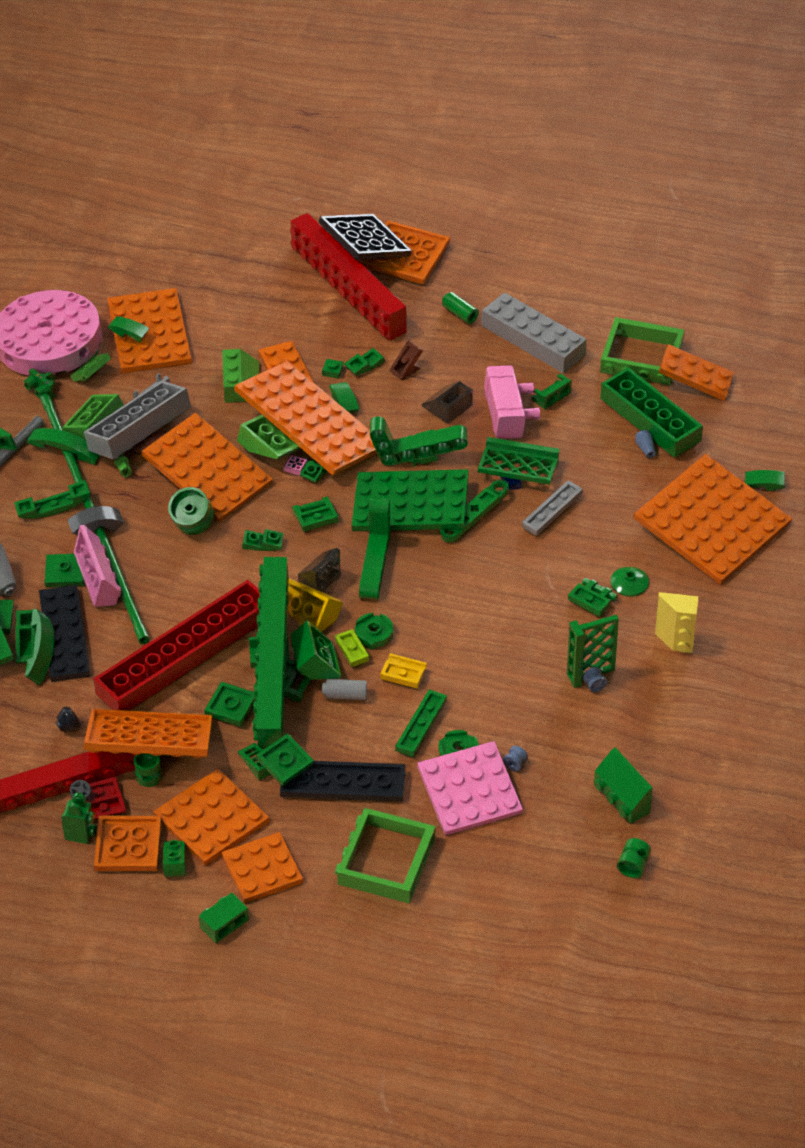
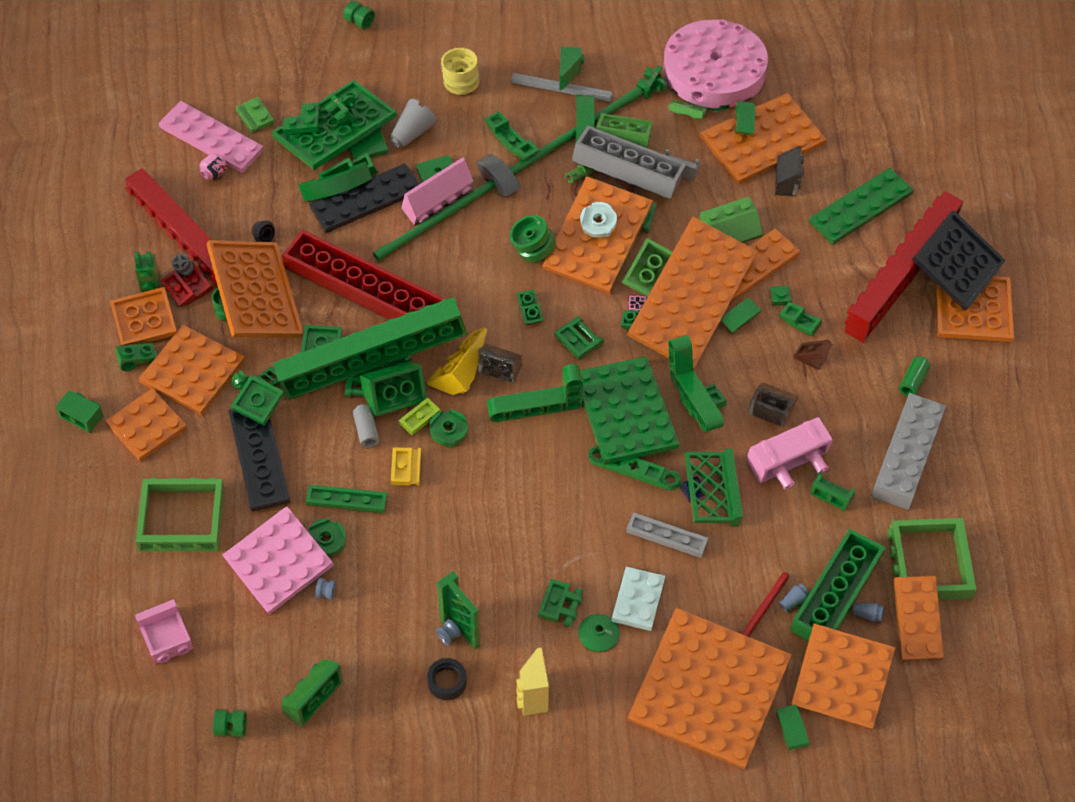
camera: 70 degrees right, 10 degrees up
(199, 463) = (592, 212): none -> light aqua plate
(205, 318) = (789, 172): none -> clear smoke slope
(246, 776) = (239, 380): none -> green plate
(260, 289) = (861, 206): none -> green plate
(516, 895) = (164, 632): none -> bright pink panel
(607, 544) = (638, 598): none -> light aqua plate
(636, 703) = (442, 664): none -> black tyre
(642, 463) = (765, 604): none -> red piece
(679, 397) = (869, 611): none -> sand blue cone
(734, 430) = (843, 676): none -> orange plate

